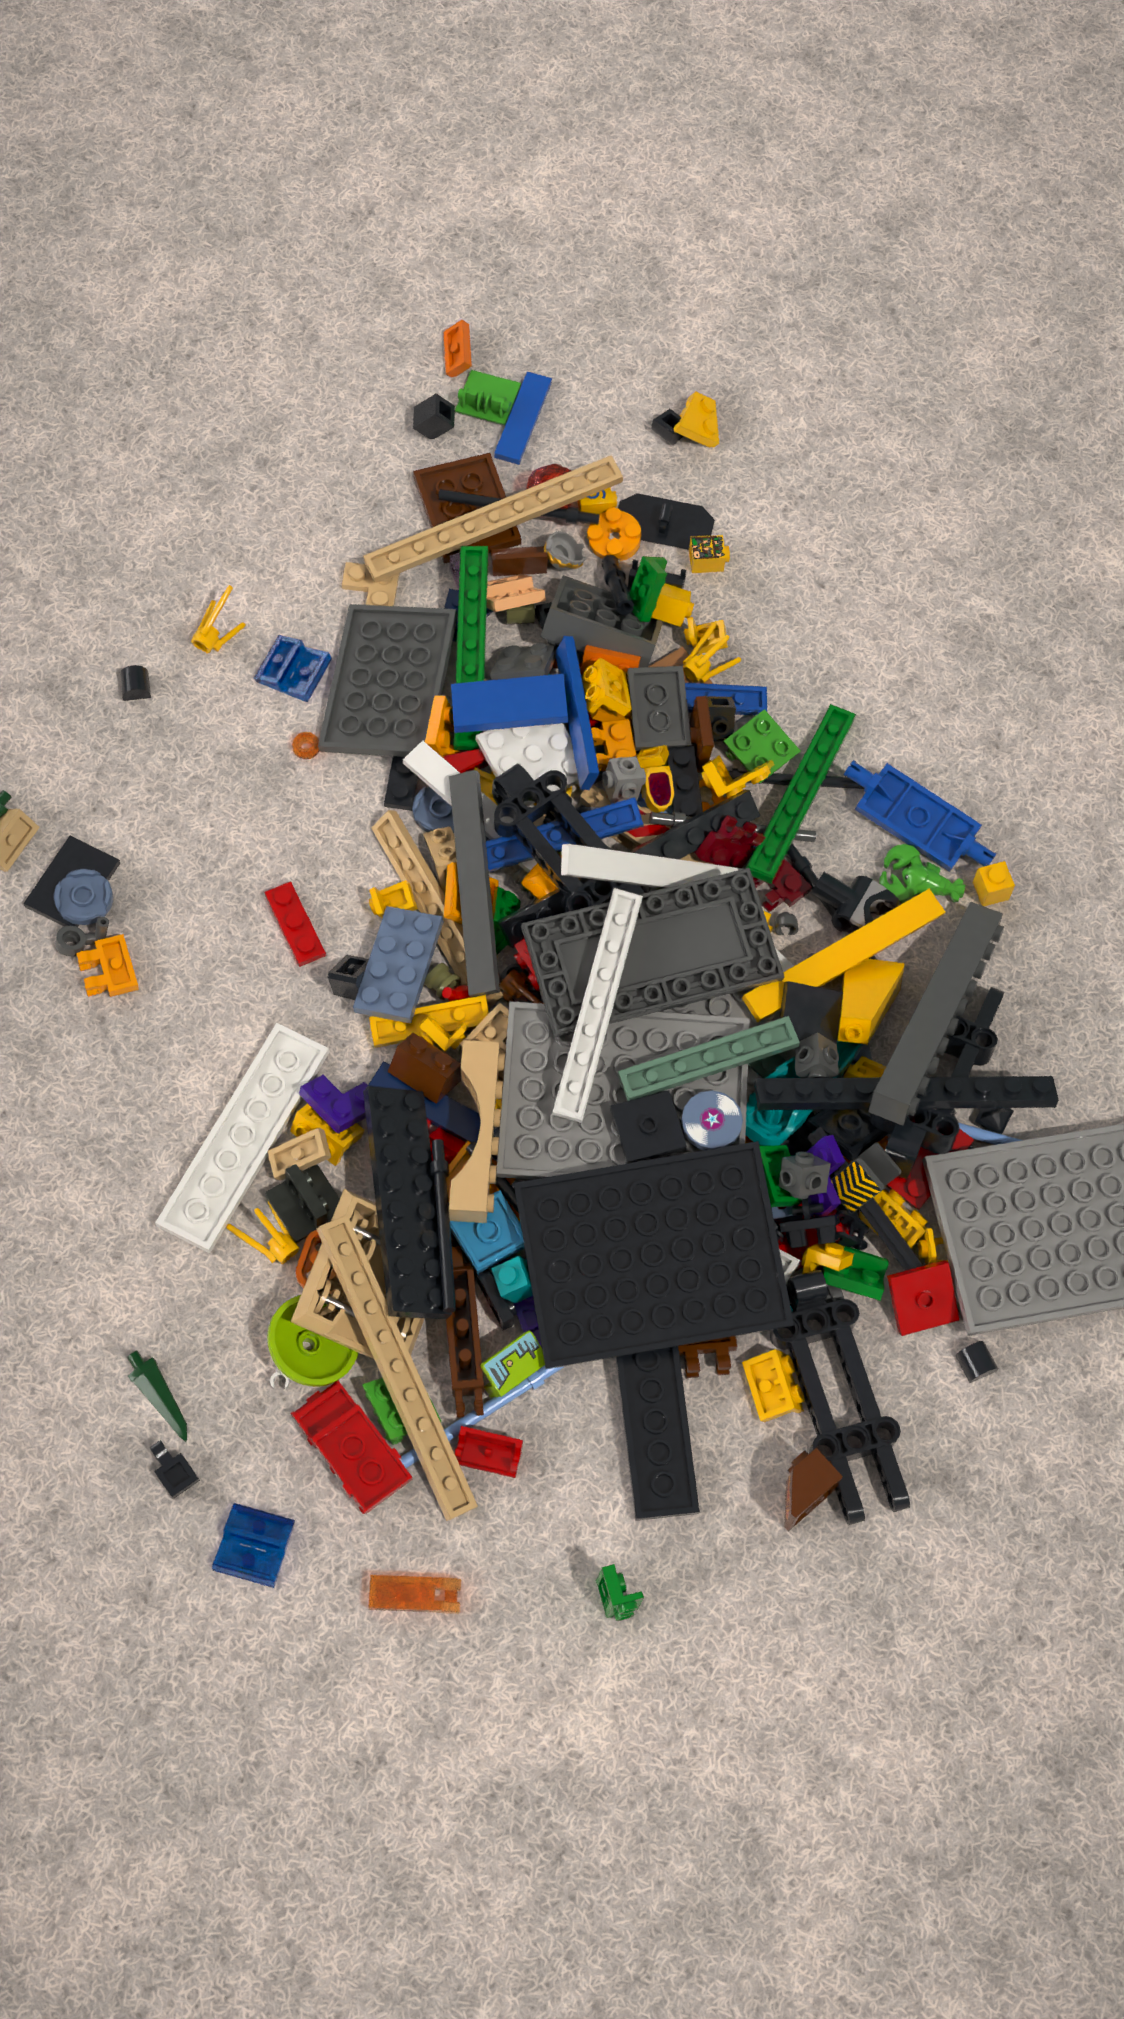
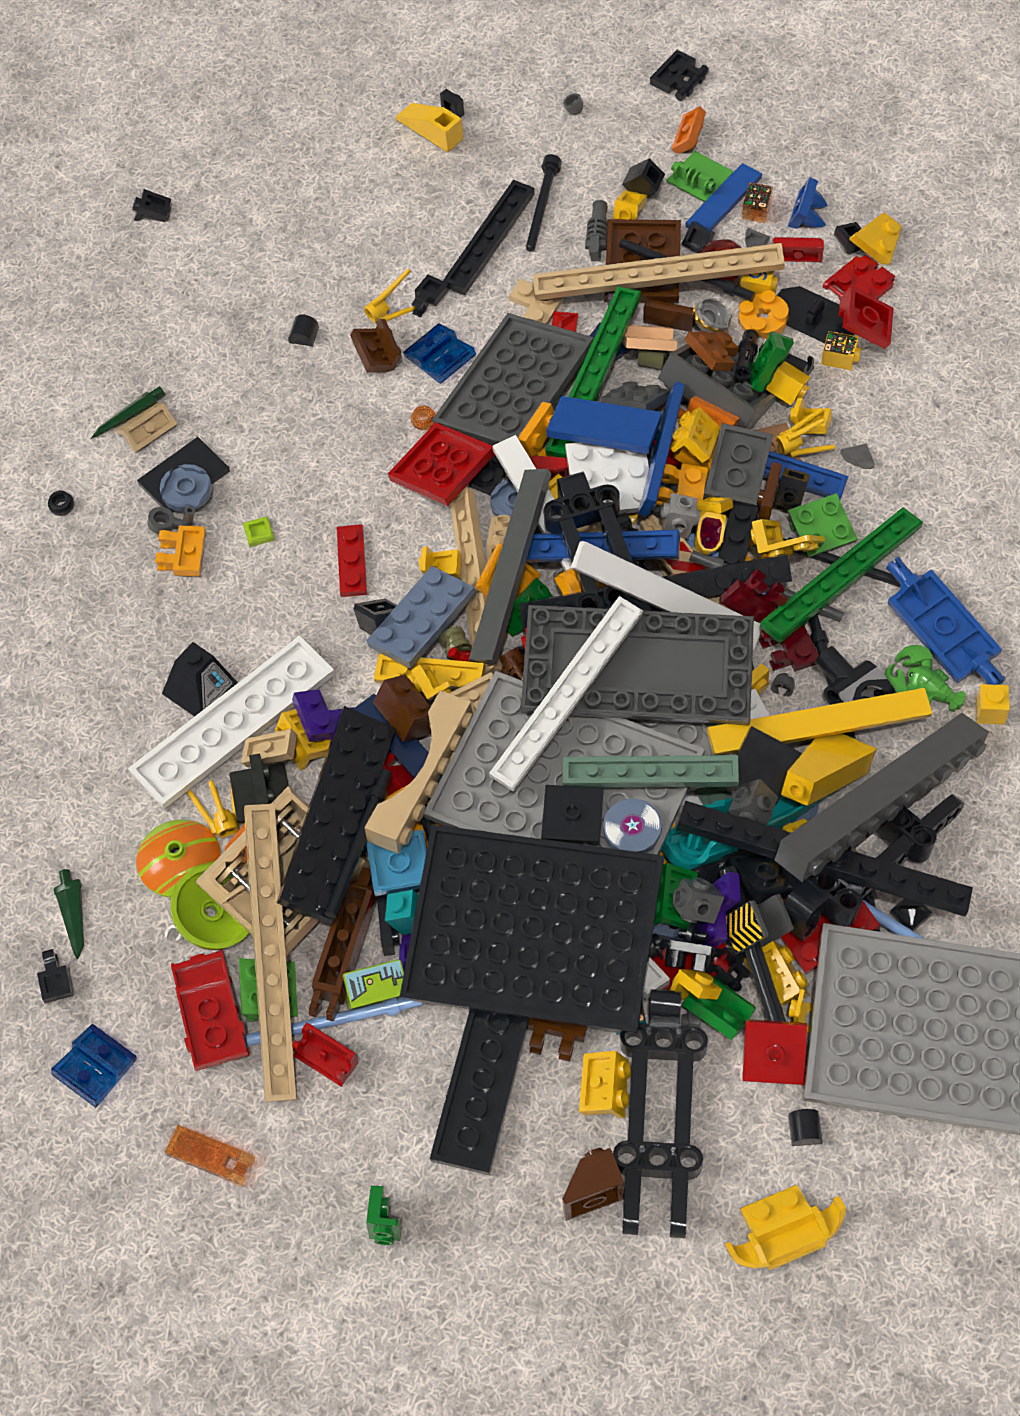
camera: 30 degrees right, 5 degrees down
(179, 408) = (434, 124): none -> yellow slope
(181, 921) = (258, 531): none -> lime tile
(188, 1105) = (197, 680): none -> black slope
(191, 380) = (452, 102): none -> black plate
(225, 680) = (377, 347): none -> reddish brown bracket
(238, 1318) = (162, 869): none -> orange dish
(255, 602) = (428, 292): none -> black plate
(293, 524) = (489, 237): none -> black plate
(322, 347) = (573, 103): none -> dark grey hinge
(327, 426) = (550, 166): none -> black piece
(349, 791) = (441, 463): none -> red plate
(405, 486) = (597, 230): none -> dark grey hinge
(412, 596) = (565, 320): none -> red tile
(413, 287) = (672, 72): none -> black plate
(428, 450) = (628, 205): none -> yellow bracket
(515, 467) = (697, 236): none -> black plate
(561, 412) = (757, 202): none -> brick
(573, 455) = (755, 238): none -> flat silver tile
(585, 588) = (713, 349): none -> dark orange plate
(608, 397) = (802, 210): none -> blue tile
(624, 451) = (801, 249): none -> red panel
(697, 473) = (862, 275): none -> red plate
(722, 511) = (866, 317): none -> red plate
(767, 662) = (858, 456): none -> flat silver tile
(997, 1465) = (785, 1229): none -> yellow plate

